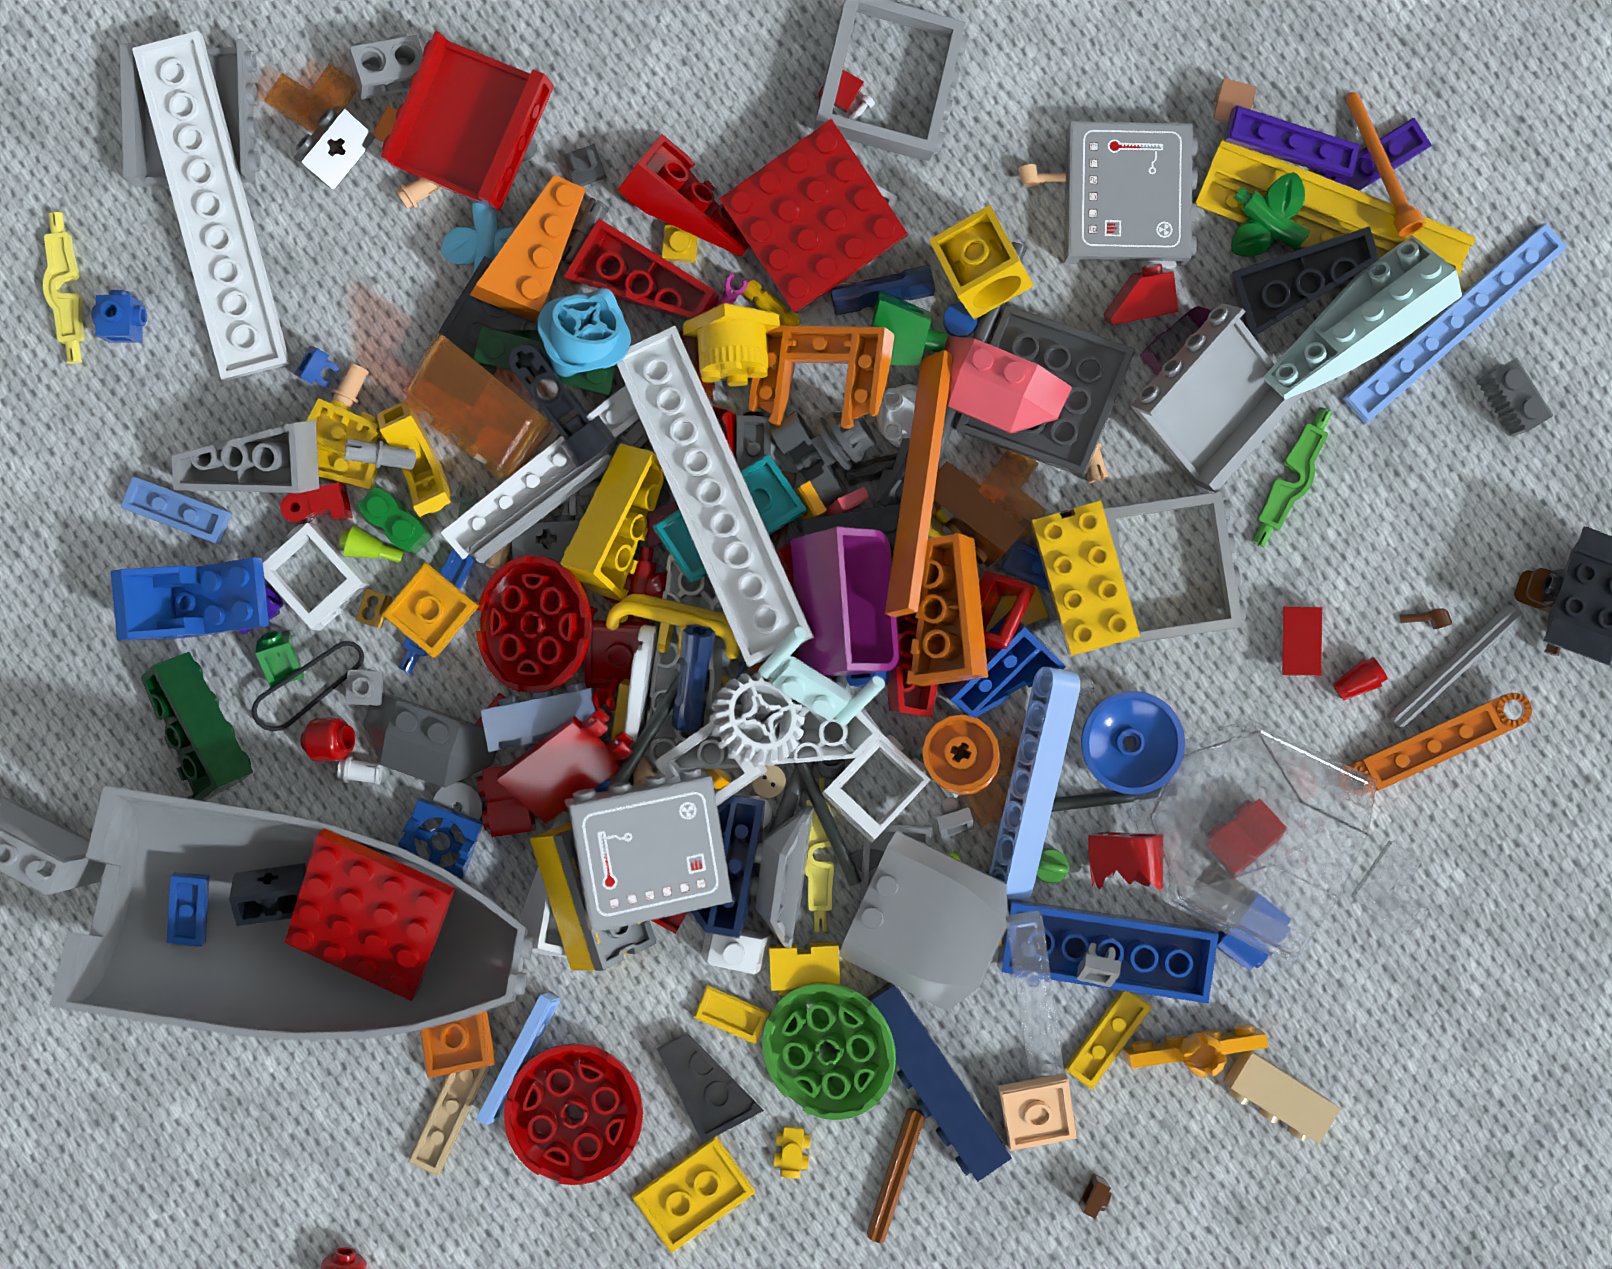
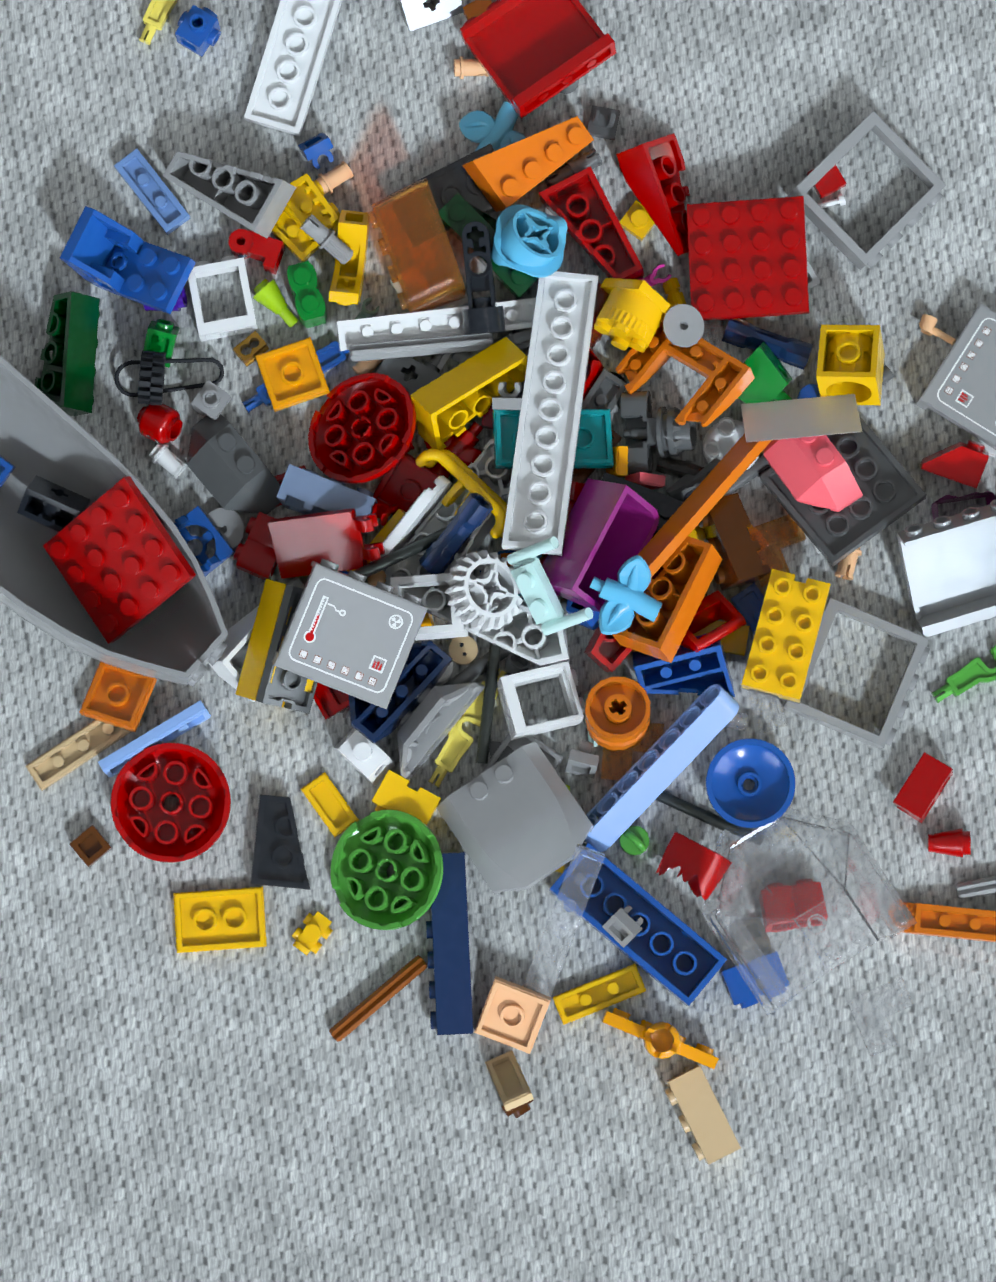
camera: 30 degrees right, 5 degrees down
(289, 702) = (151, 377): none -> black tyre
(521, 1201) = (90, 846): none -> reddish brown plate
(660, 509) = (506, 400): none -> light grey tile
(791, 324) = (683, 325): none -> light grey piece
(905, 642) = (626, 597): none -> medium azure plant
(965, 347) = (800, 418): none -> white sticker
(1074, 1181) = (509, 1080): none -> tan tile

